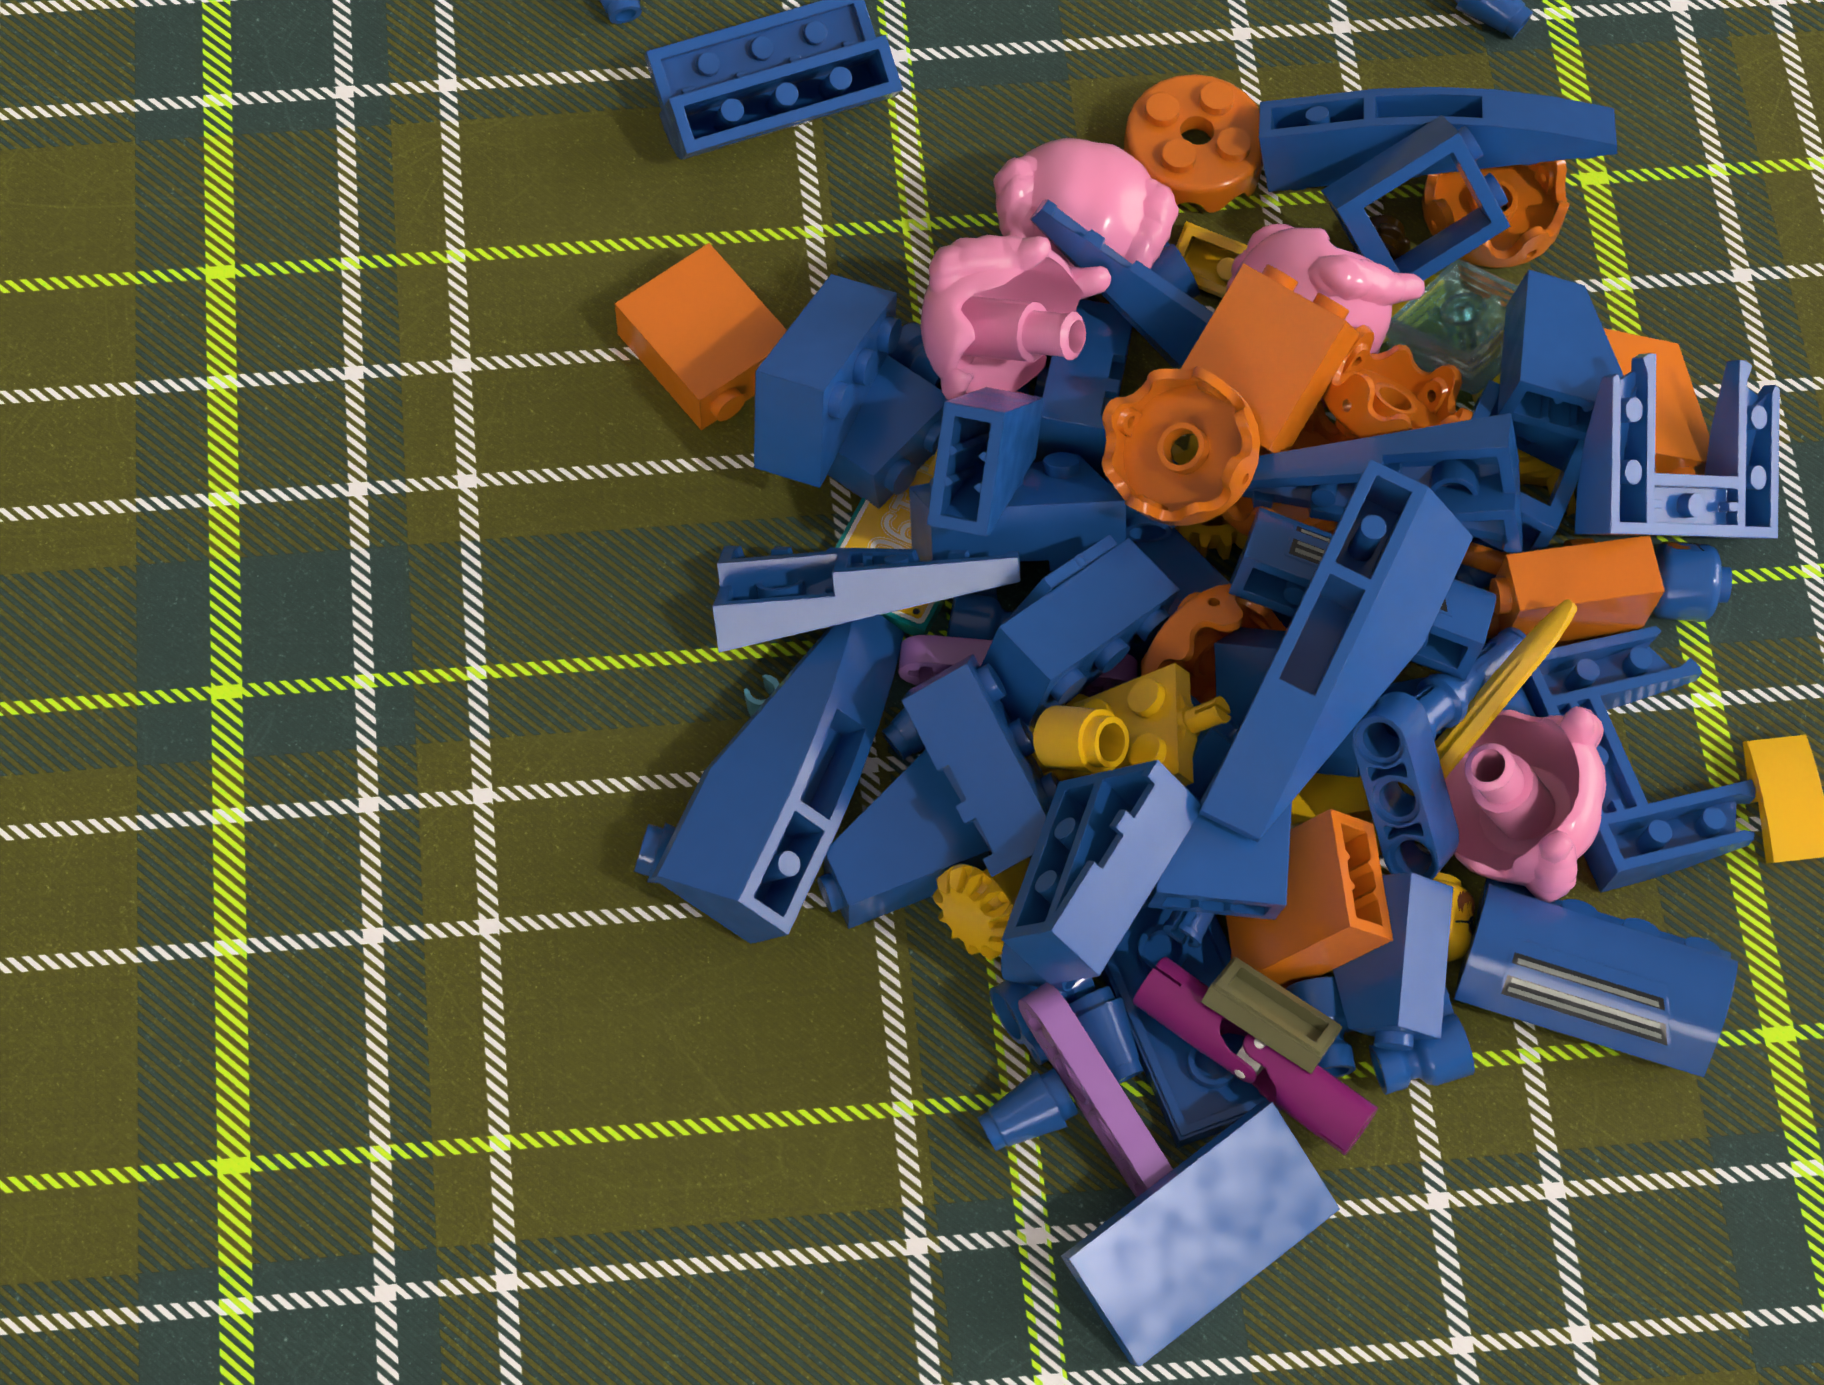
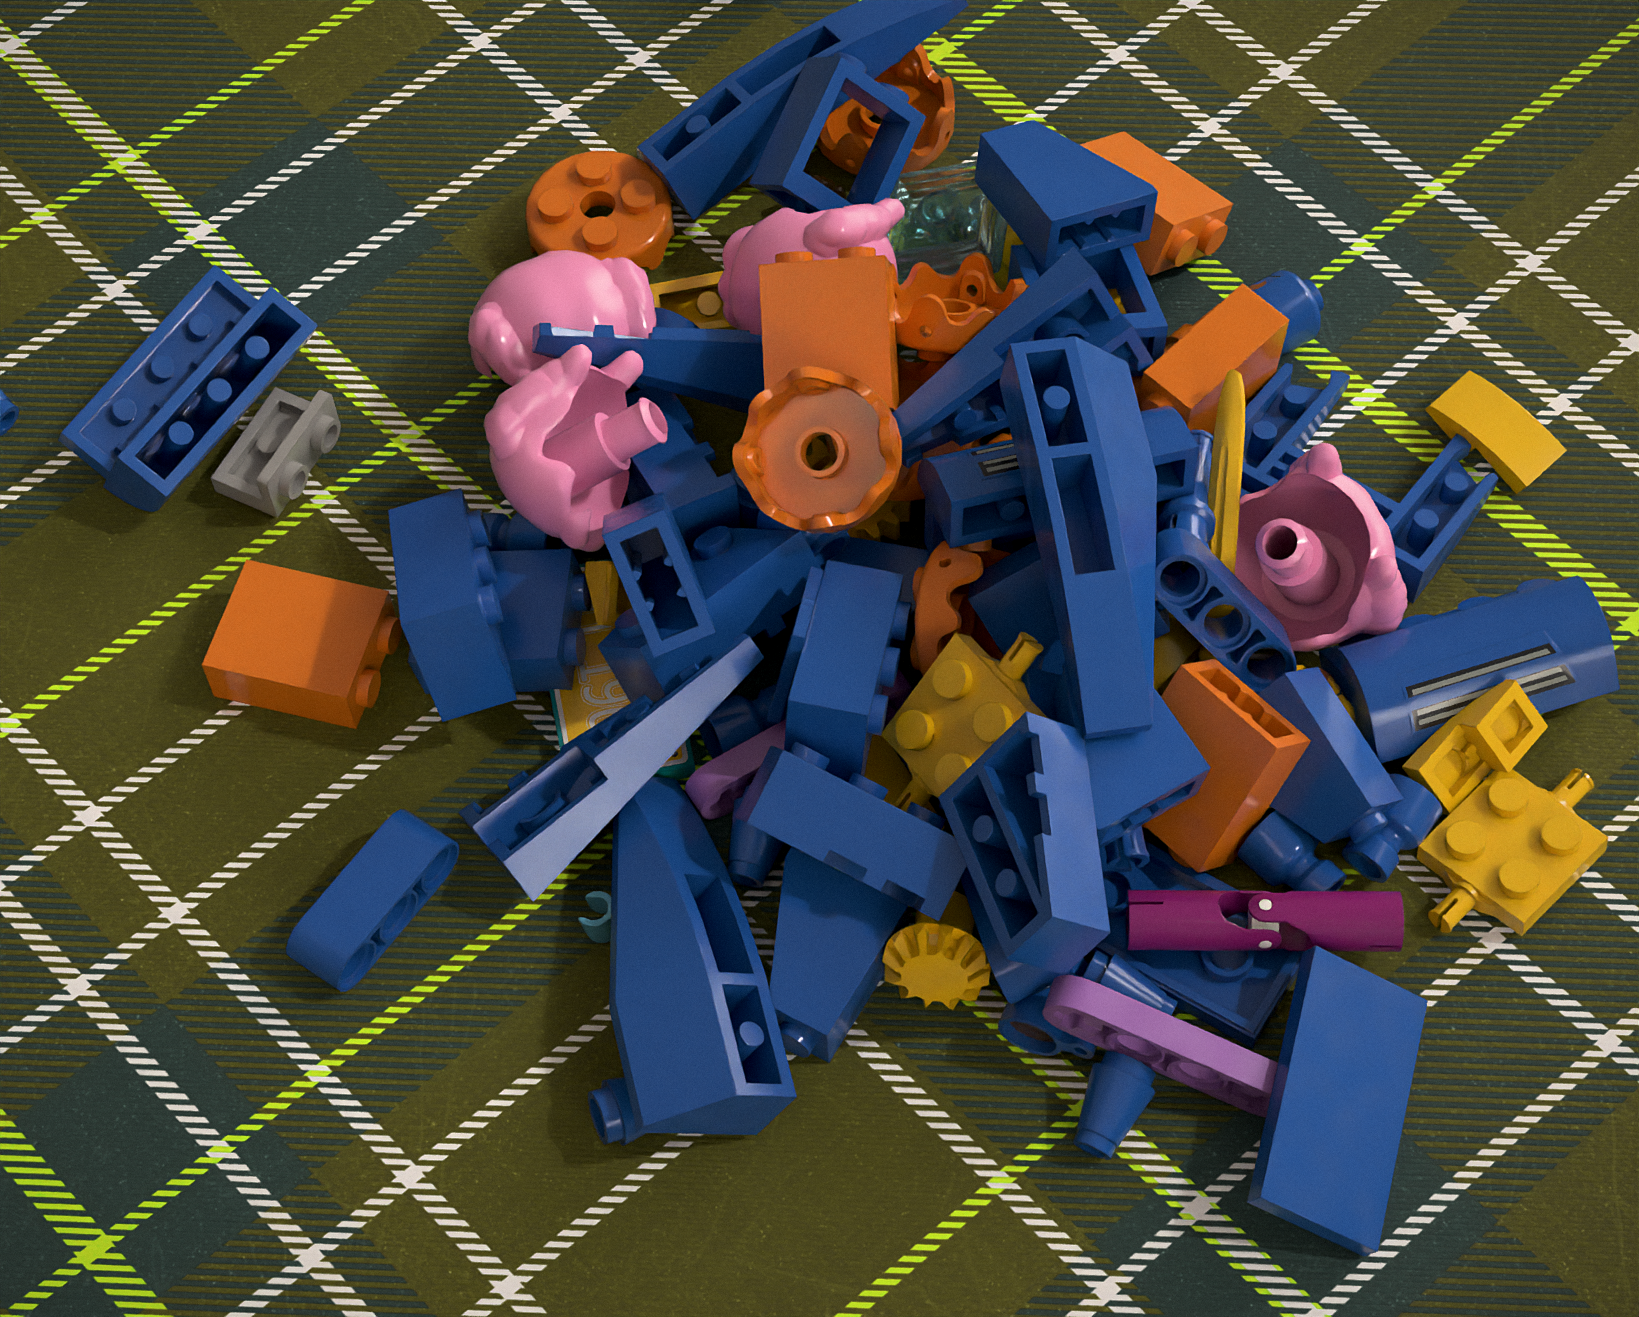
camera: 30 degrees left, 5 degrees down
(607, 569) = (372, 900): none -> blue beam
(804, 171) = (278, 451): none -> light grey bracket
(1080, 739) = (926, 750): yellow brick -> none
(1272, 1014) = (1255, 874): olive tile -> none
(1510, 1141) = (1511, 849): none -> yellow plate
(1553, 1036) = (1481, 737): none -> yellow slope
(1741, 479) = (1188, 254): blue wedge -> none

